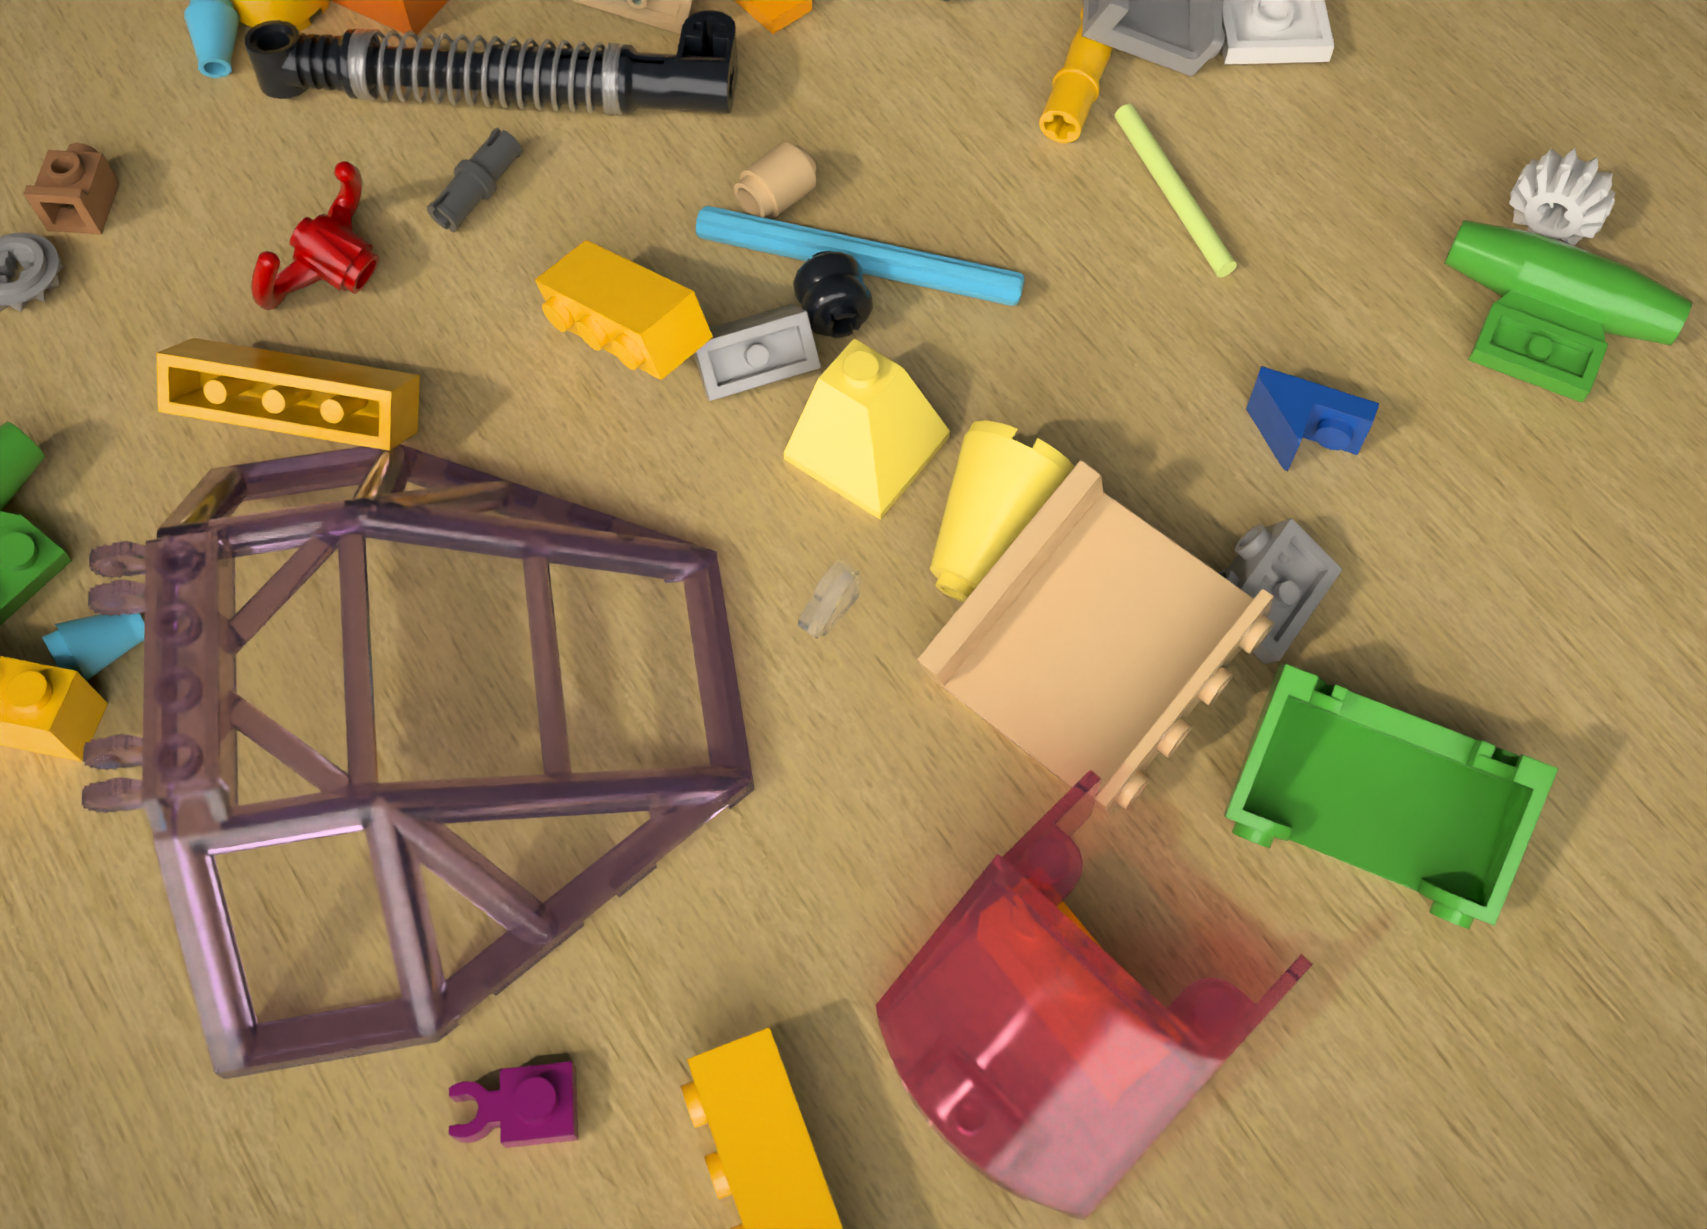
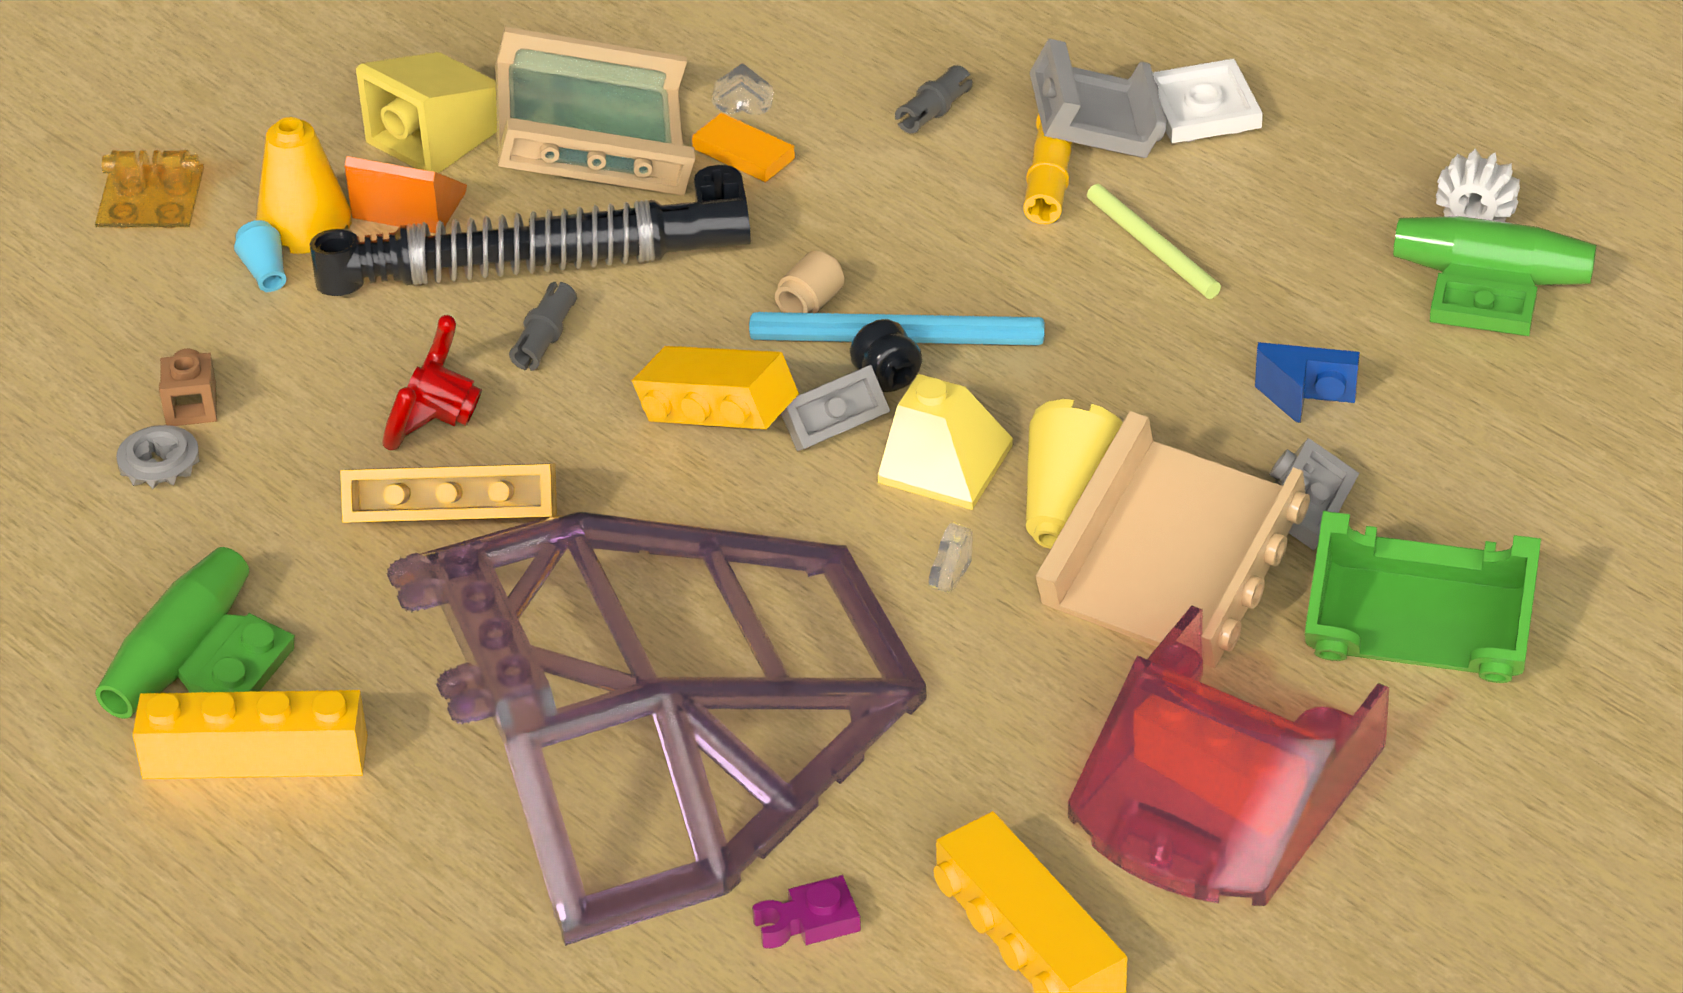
camera: 10 degrees left, 20 degrees down
(94, 641) = (363, 676): medium azure cone -> none

